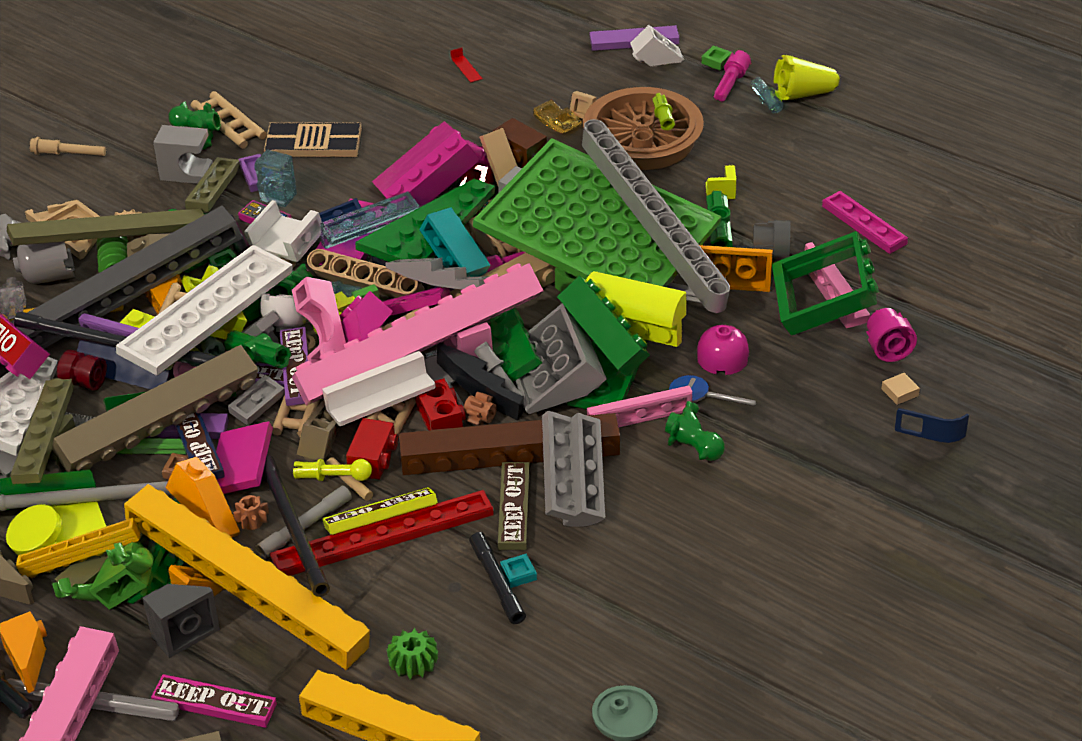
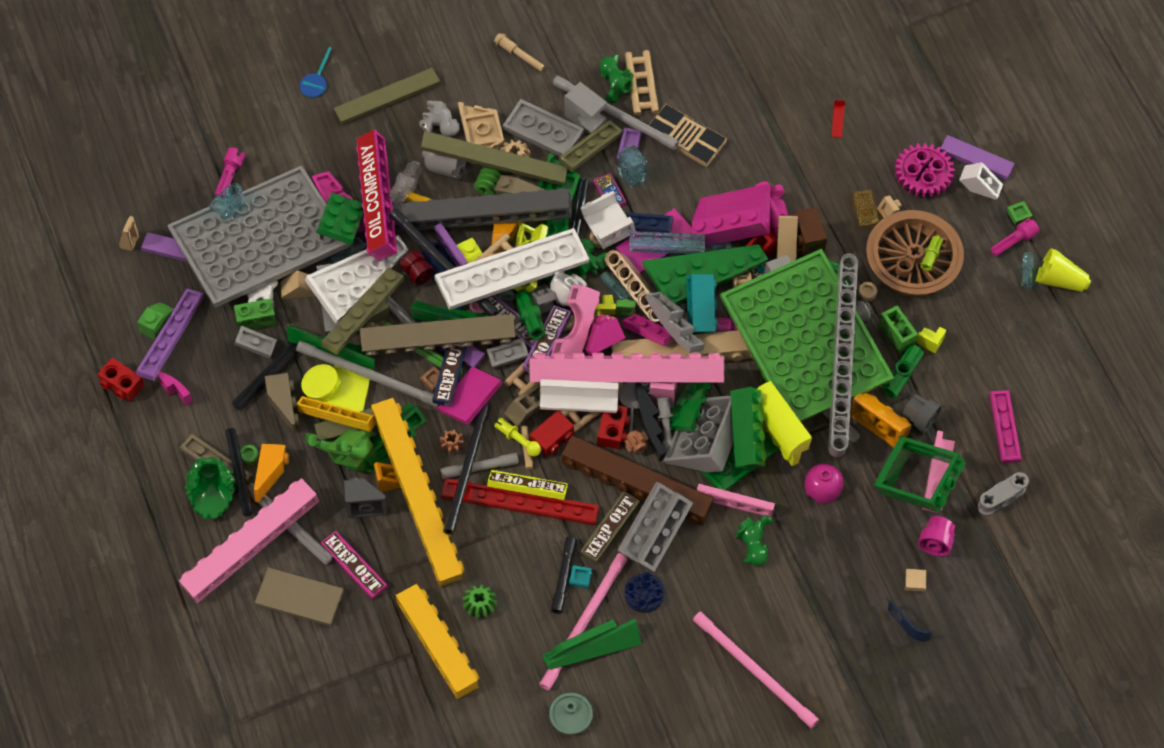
camera: 30 degrees right, 20 degrees up
(143, 194) = (542, 128): none -> light grey plate
(200, 492) = (427, 419): light orange slope -> none
(291, 146) = (663, 138): none -> light grey piece
(565, 683) = (614, 569): none -> bright pink piece
(593, 622) = (594, 643): none -> green wedge
(608, 547) = (644, 592): none -> clear blue tile
(609, 64) = (910, 162): none -> dark pink gear
(685, 183) = (898, 329): none -> bright green brick
(700, 390) = (784, 502): piece -> none
(895, 568) = (801, 711): none -> bright pink piece
(919, 272) = (1003, 494): none -> light grey piece

